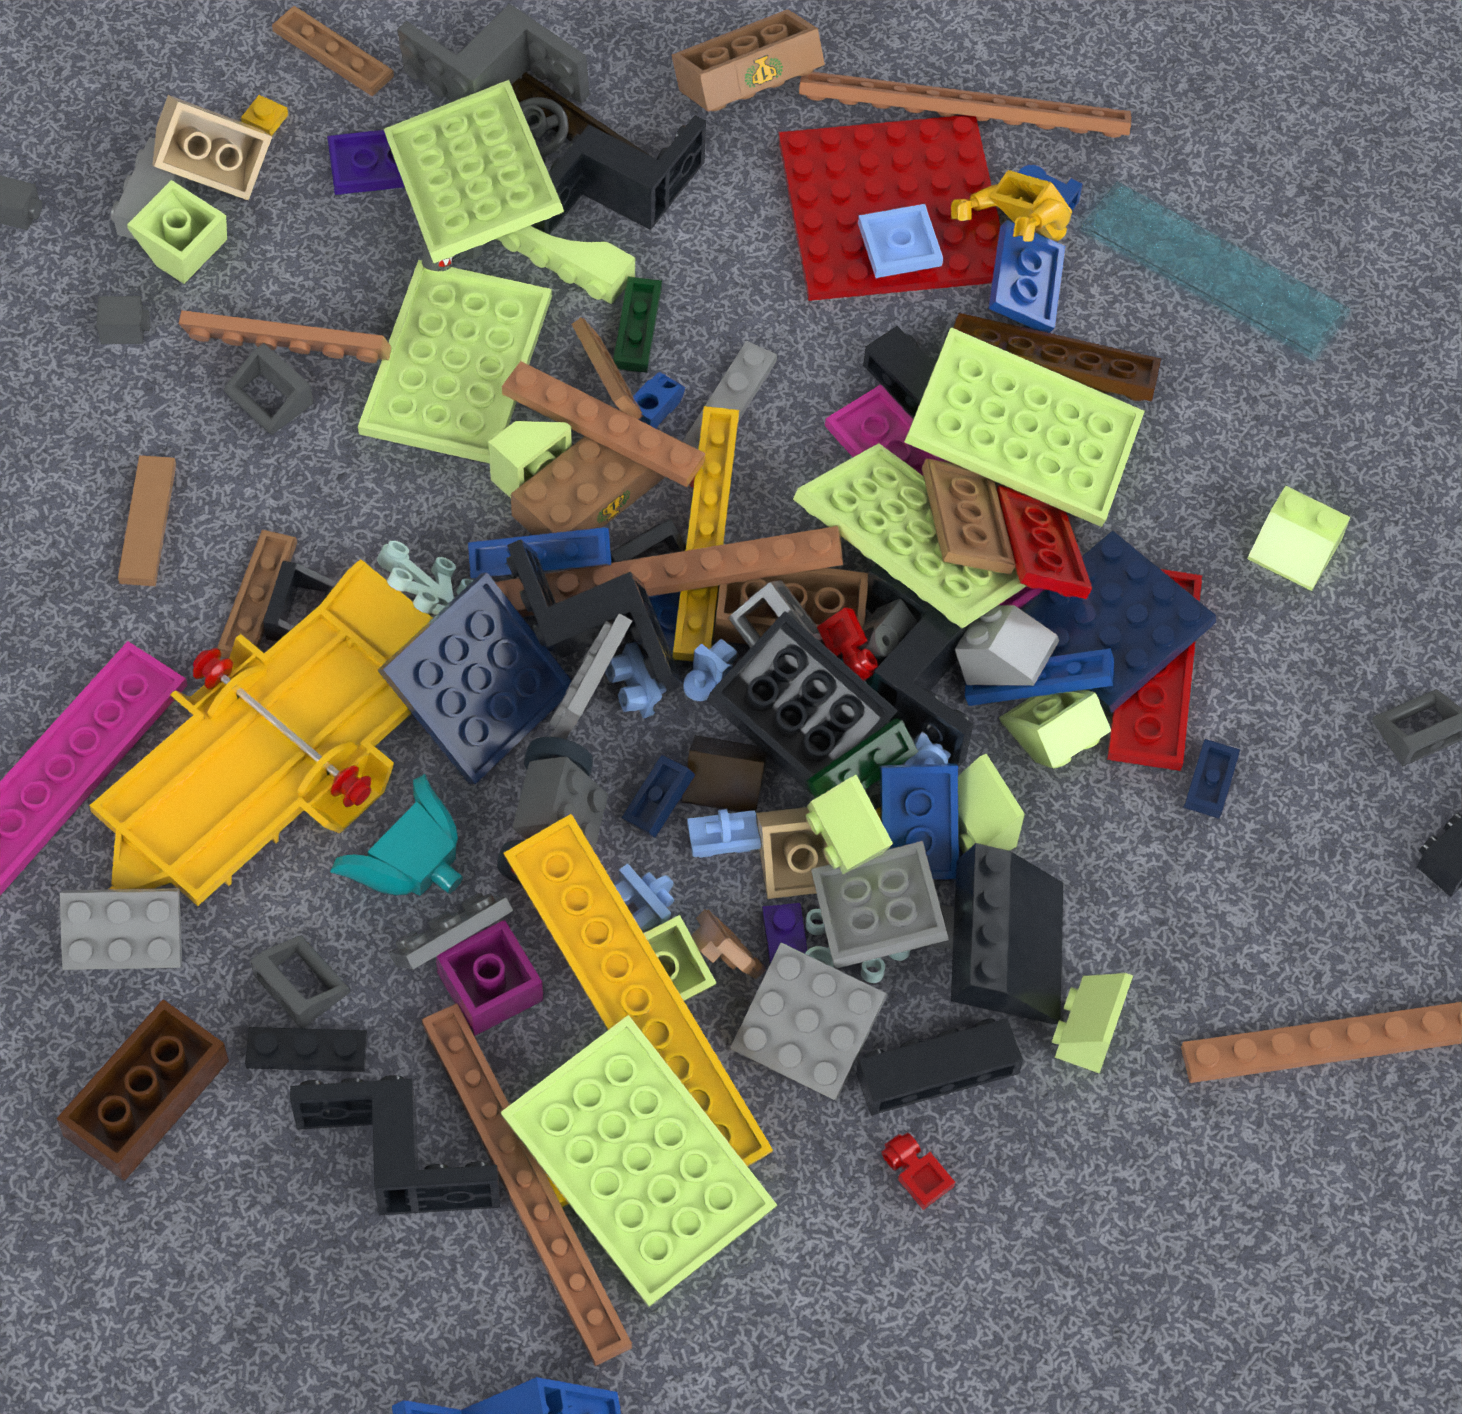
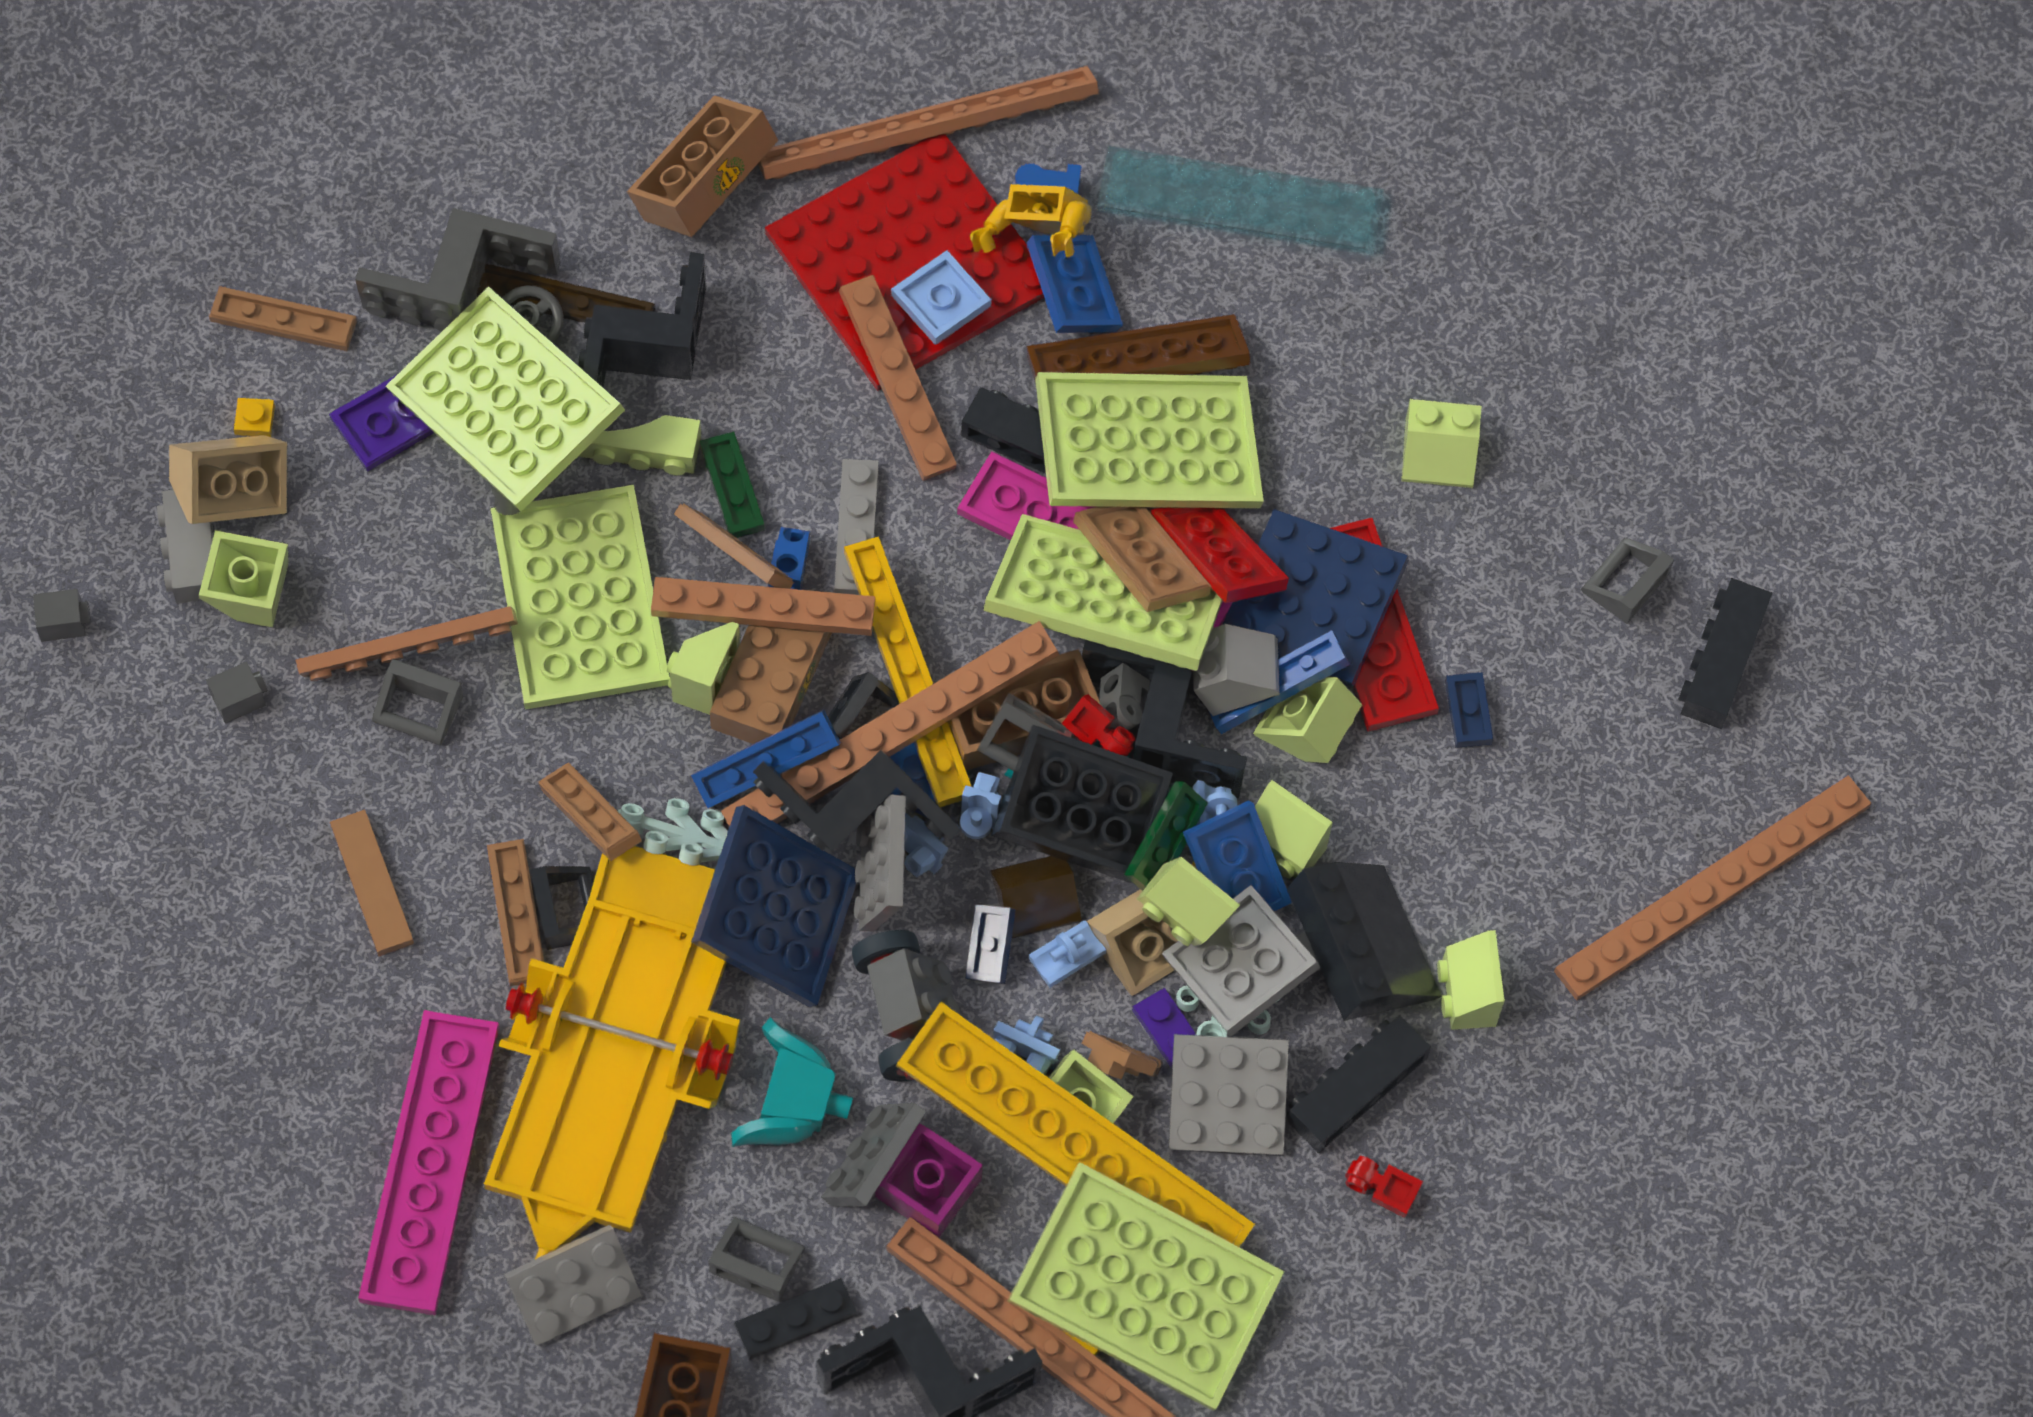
camera: 25 degrees left, 5 degrees up
(360, 533) = (590, 811): none -> medium nougat tile
(828, 293) = (897, 377): none -> nougat plate

